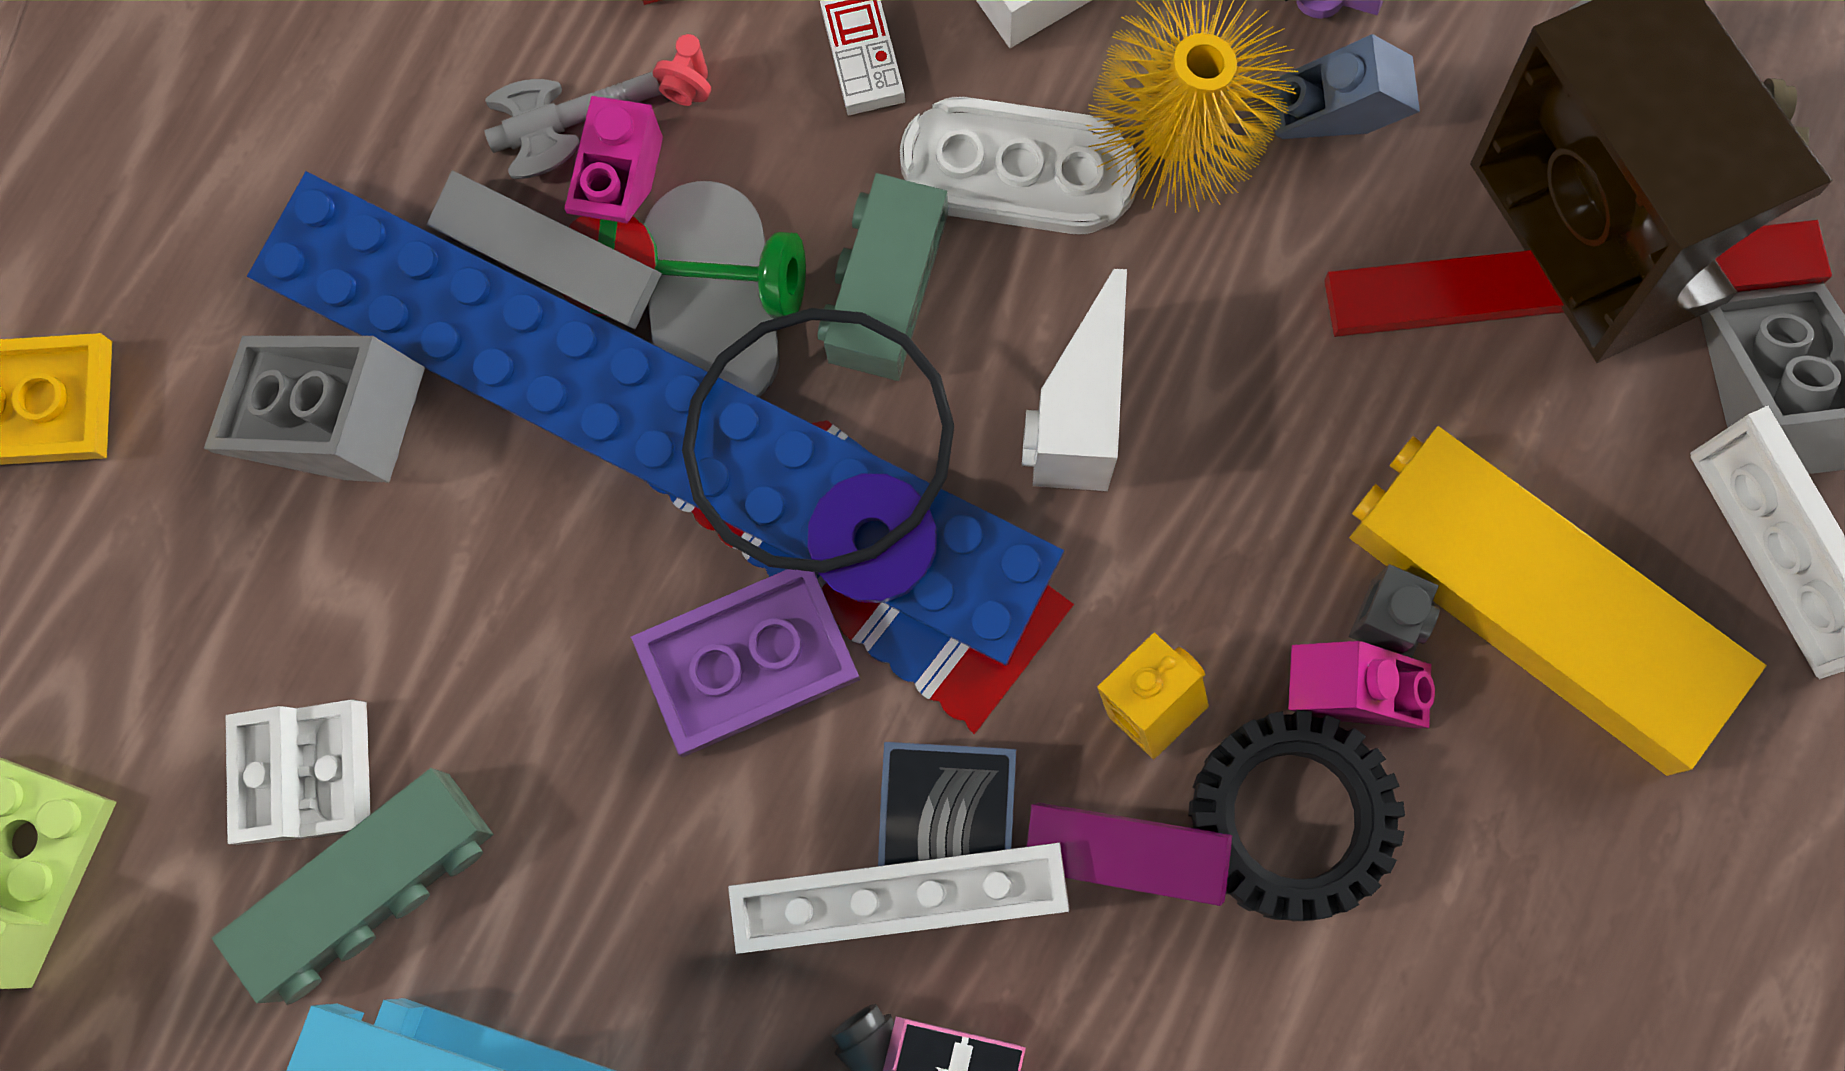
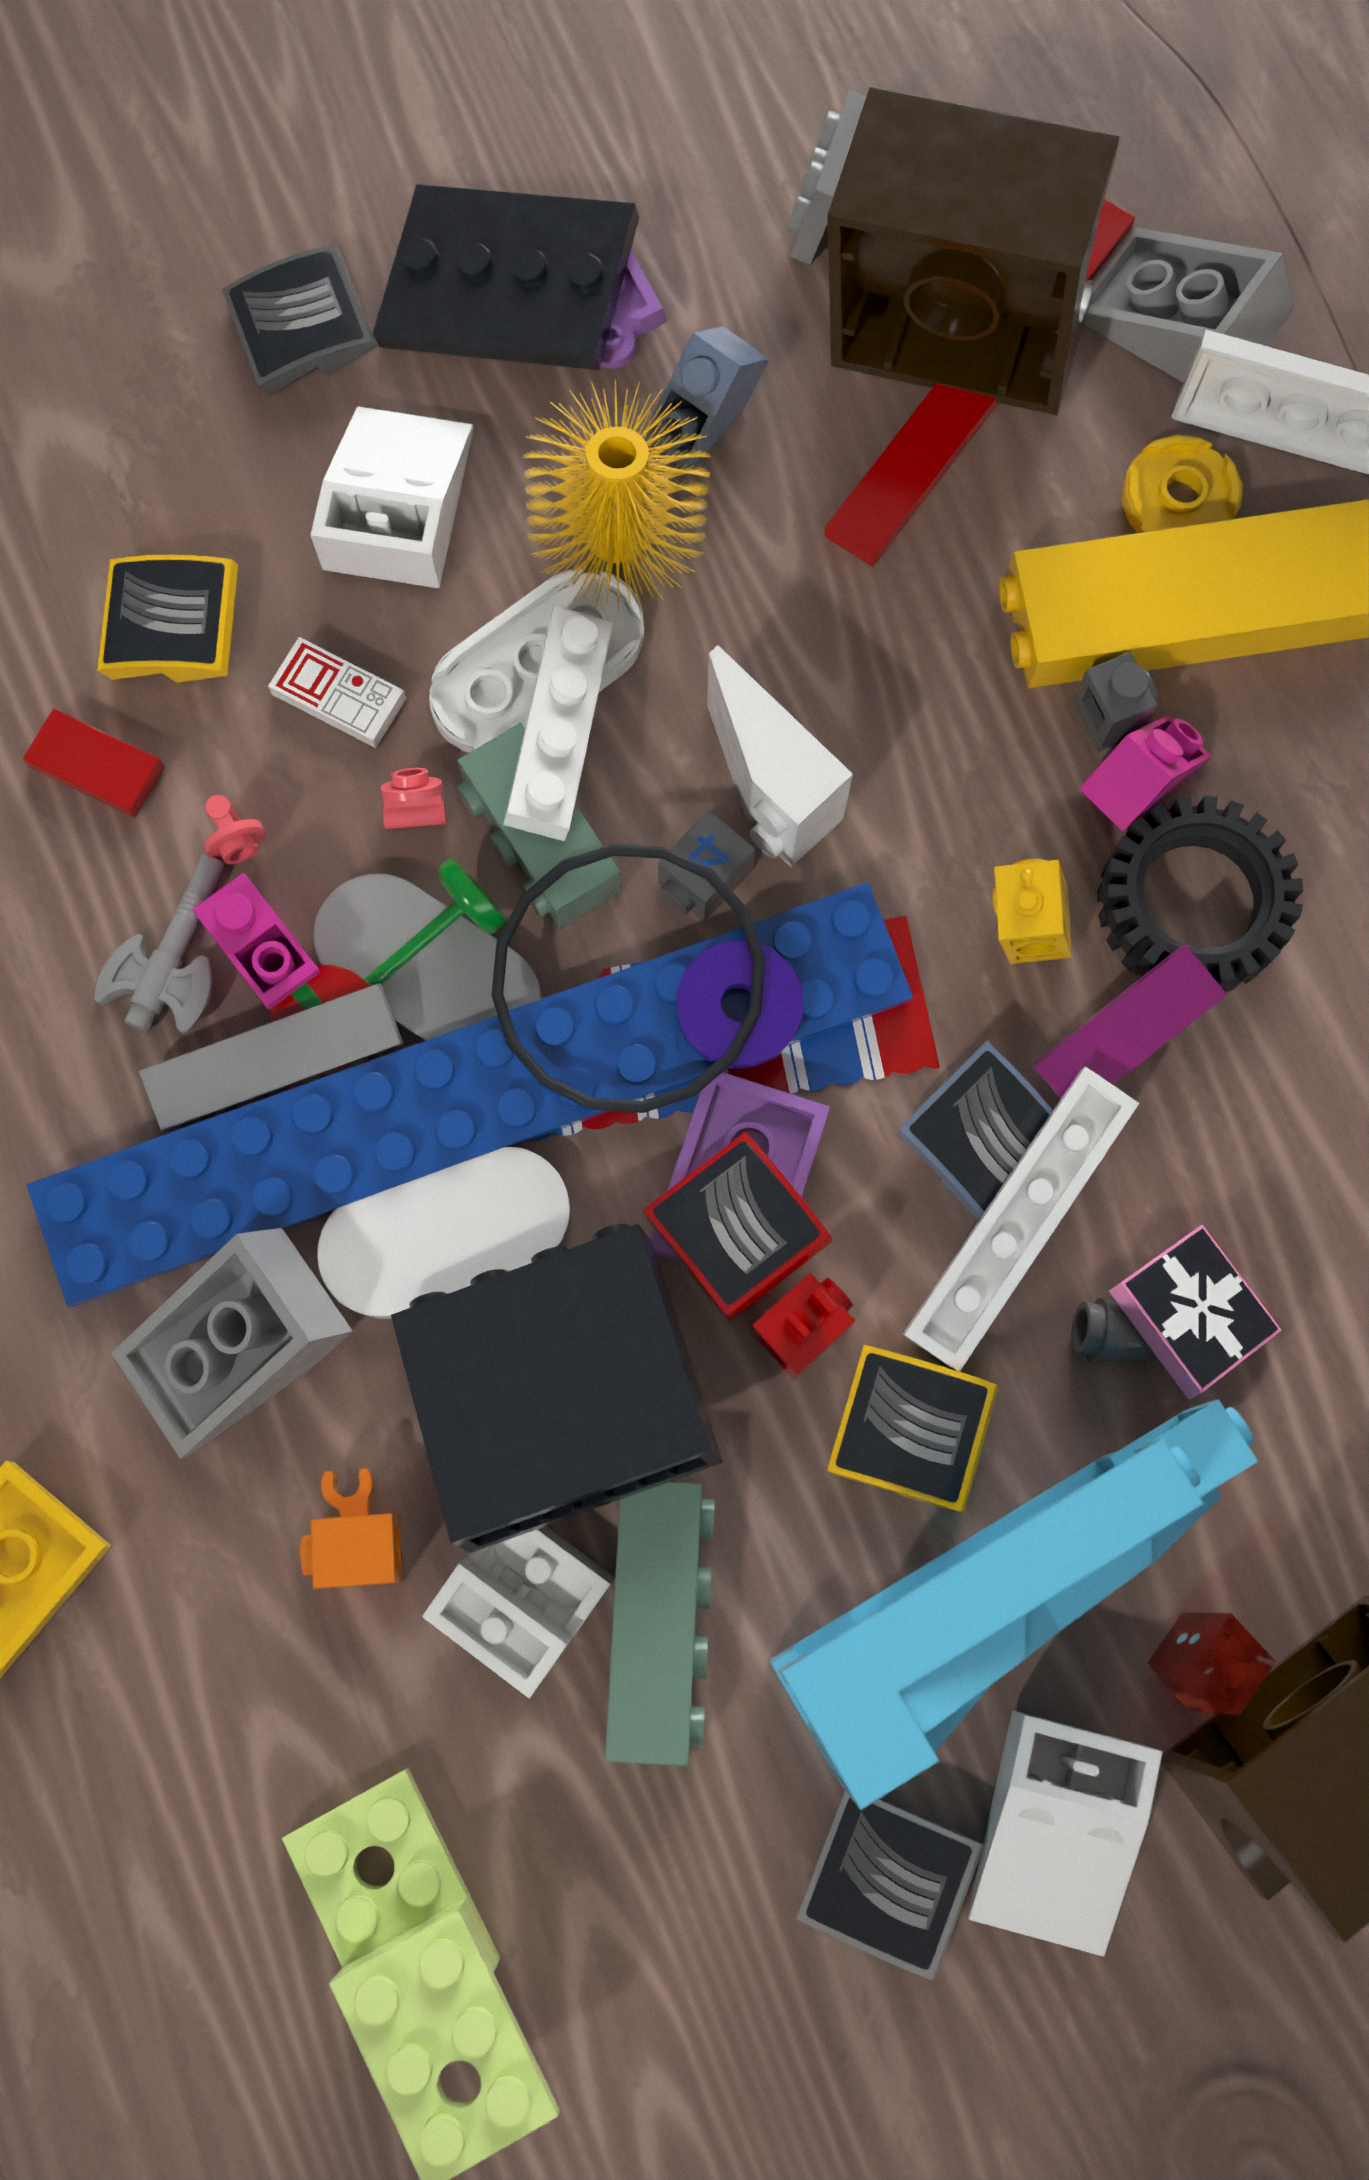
camera: 55 degrees left, 0 degrees up
(238, 622) = (357, 1545): none -> orange brick
(458, 659) = (553, 1388): none -> black brick
(522, 485) = (442, 1231): none -> white tile
(664, 957) = (913, 1428): none -> slope
(672, 803) = (804, 1324): none -> red brick
(697, 686) = (737, 1226): none -> slope
(828, 173) = (413, 800): none -> coral plate
(970, 217) = (558, 724): none -> white plate
(978, 421) = (715, 847): none -> dark grey brick
(1659, 492) = (1184, 461): none -> yellow tile

